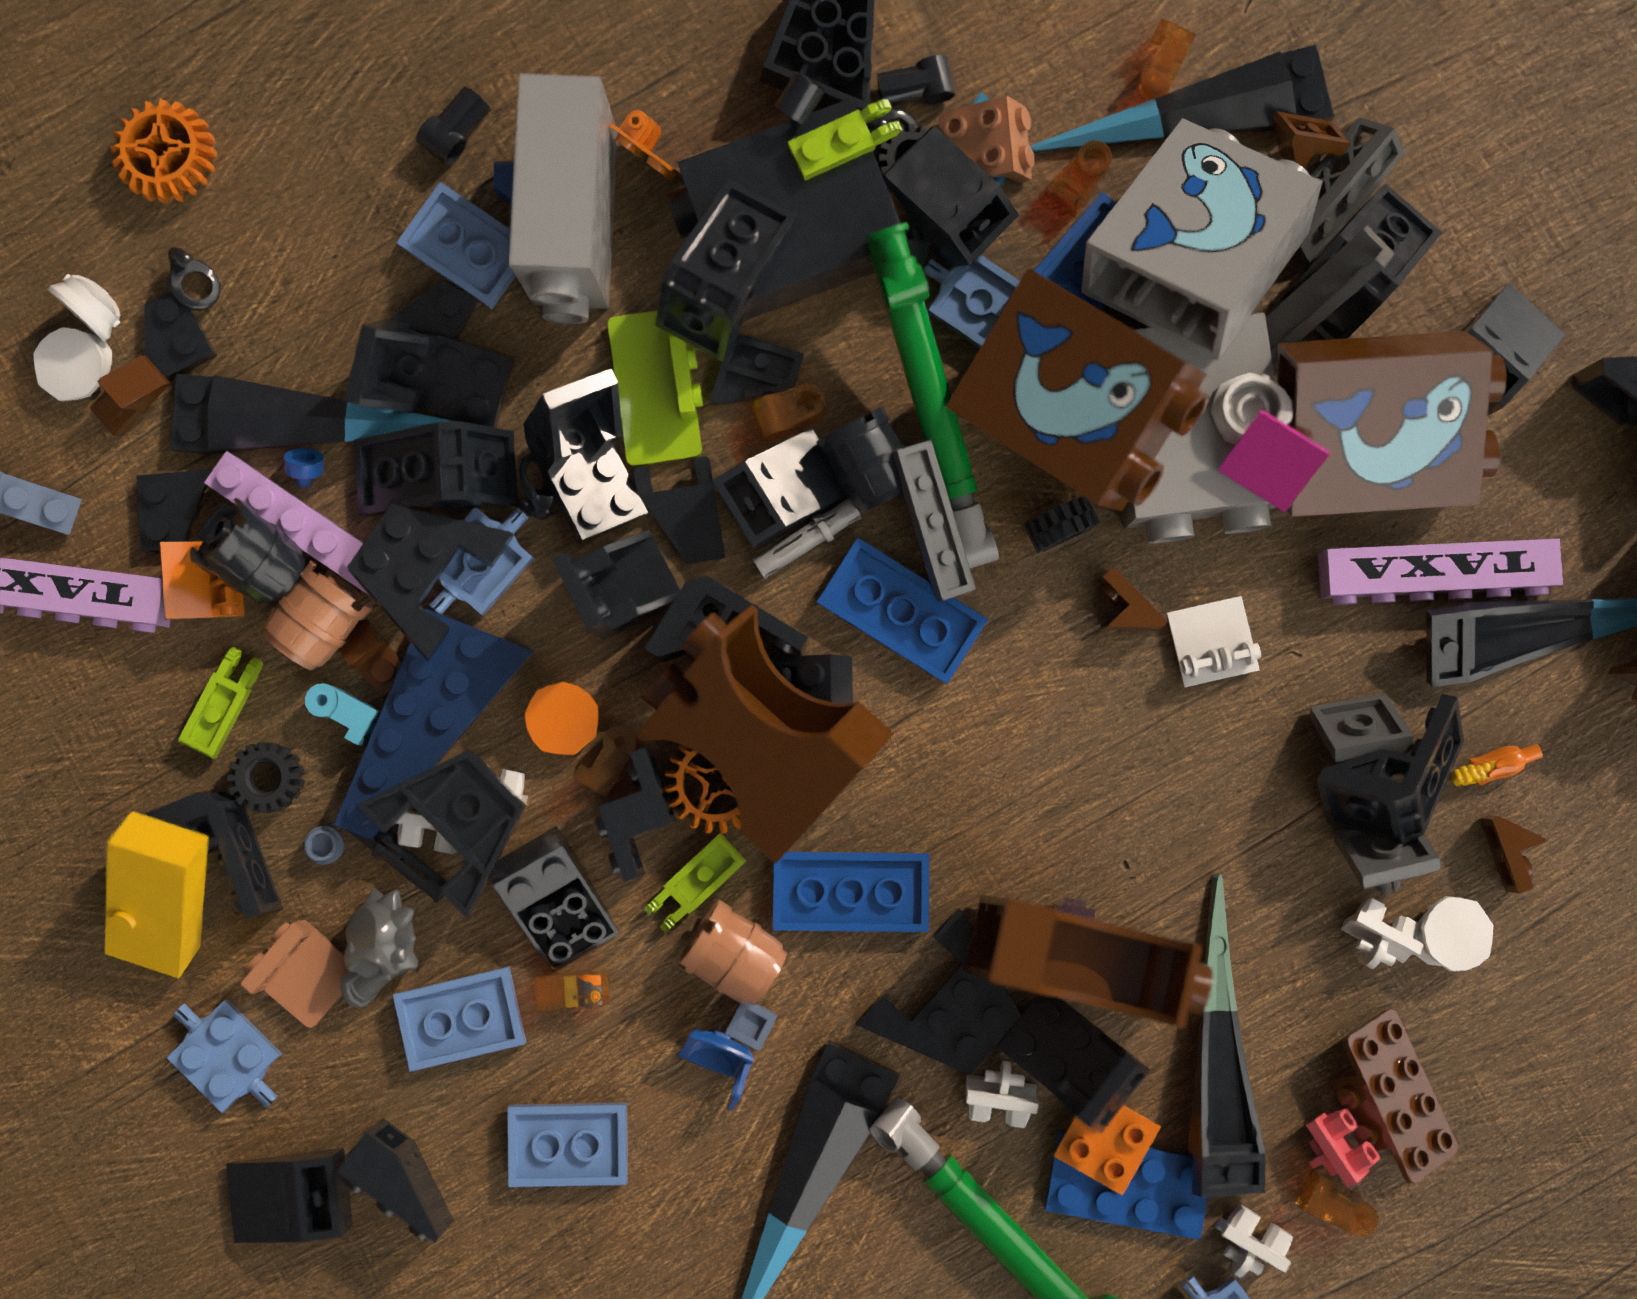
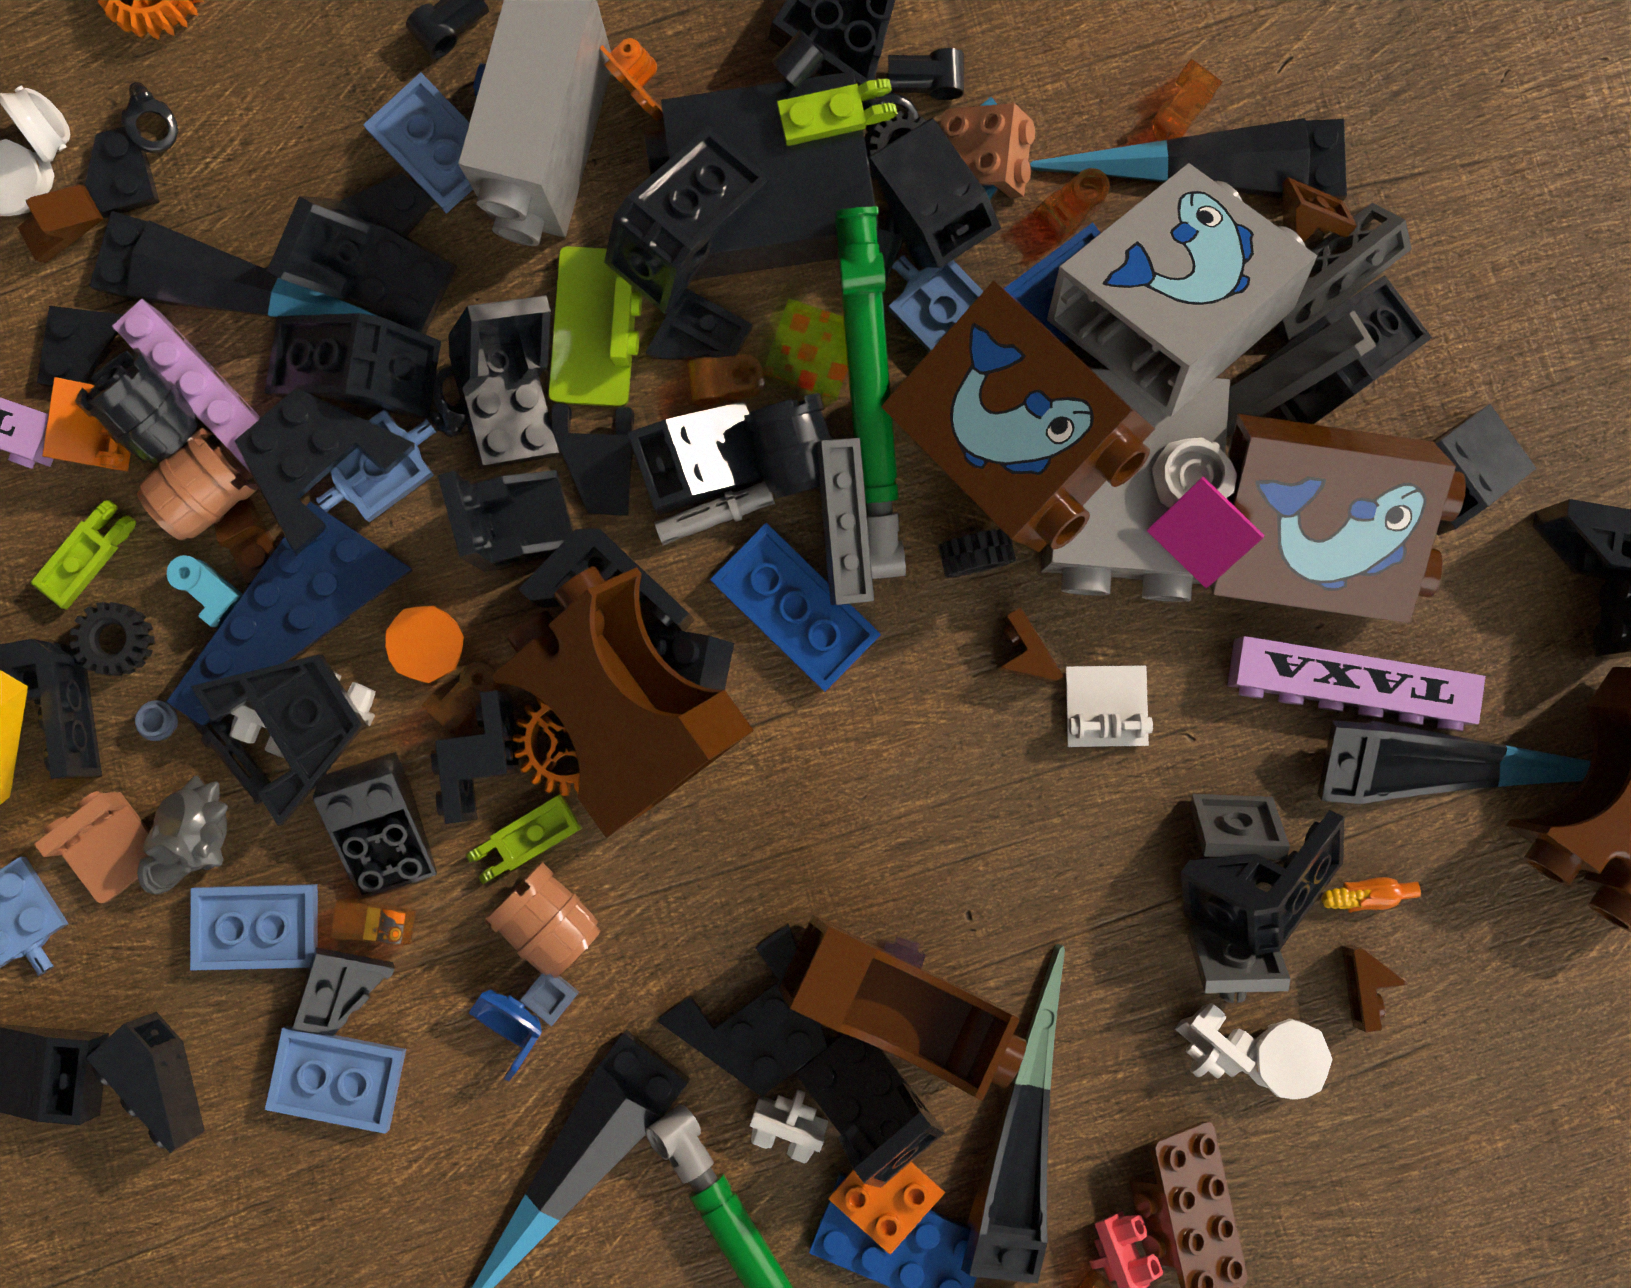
camera: 10 degrees right, 0 degrees up
(304, 465) = (220, 330): blue tile -> none
(549, 1059) = (335, 988): none -> black wing
(851, 892) = (681, 883): blue plate -> none
(863, 366) = (809, 350): none -> clear neon green tile

